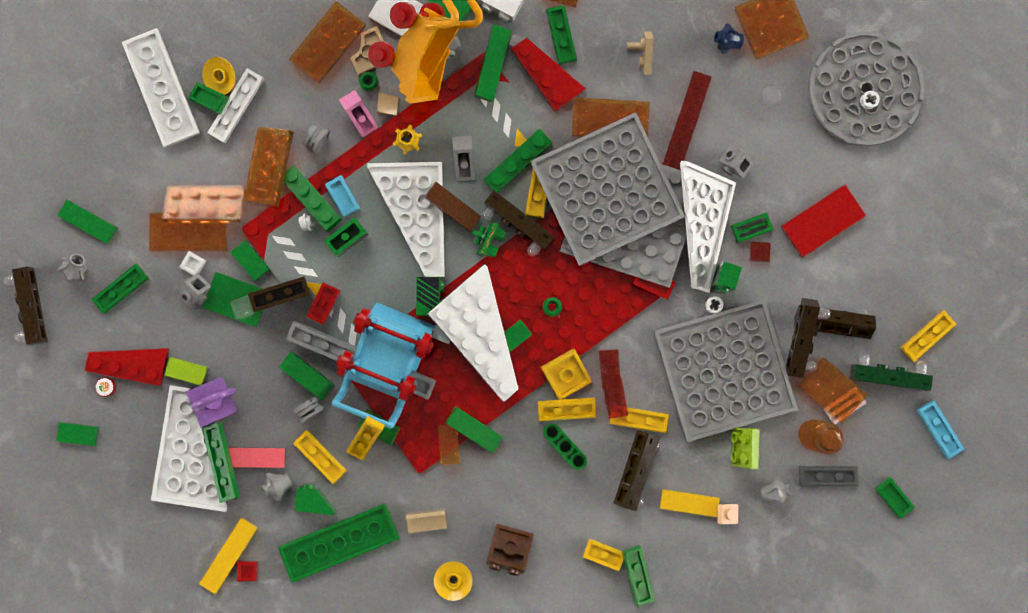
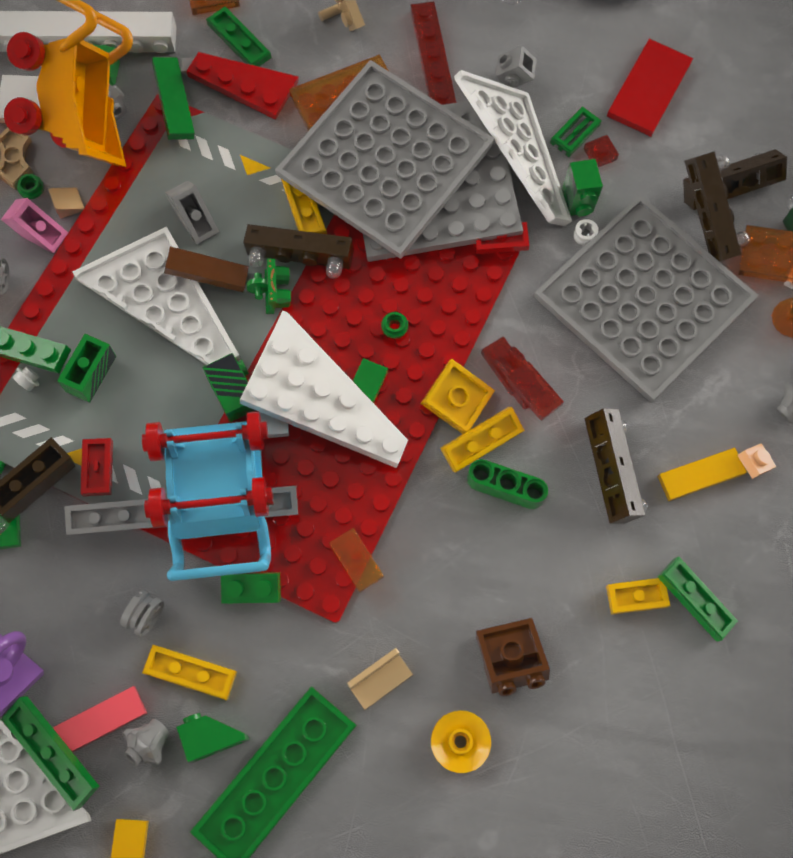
camera: 30 degrees left, 15 degrees down
(306, 375) = (118, 571): green beam -> none
(342, 196) = (58, 326): medium azure tile -> none
(365, 438) = (238, 606): yellow tile -> none
(407, 133) = (109, 221): yellow rock -> none
(474, 429) = (378, 523): green tile -> none
(518, 161) = (259, 187): green plate -> none
(643, 420) = (582, 404): yellow tile -> none
(745, 447) = (729, 366): lime plate -> none

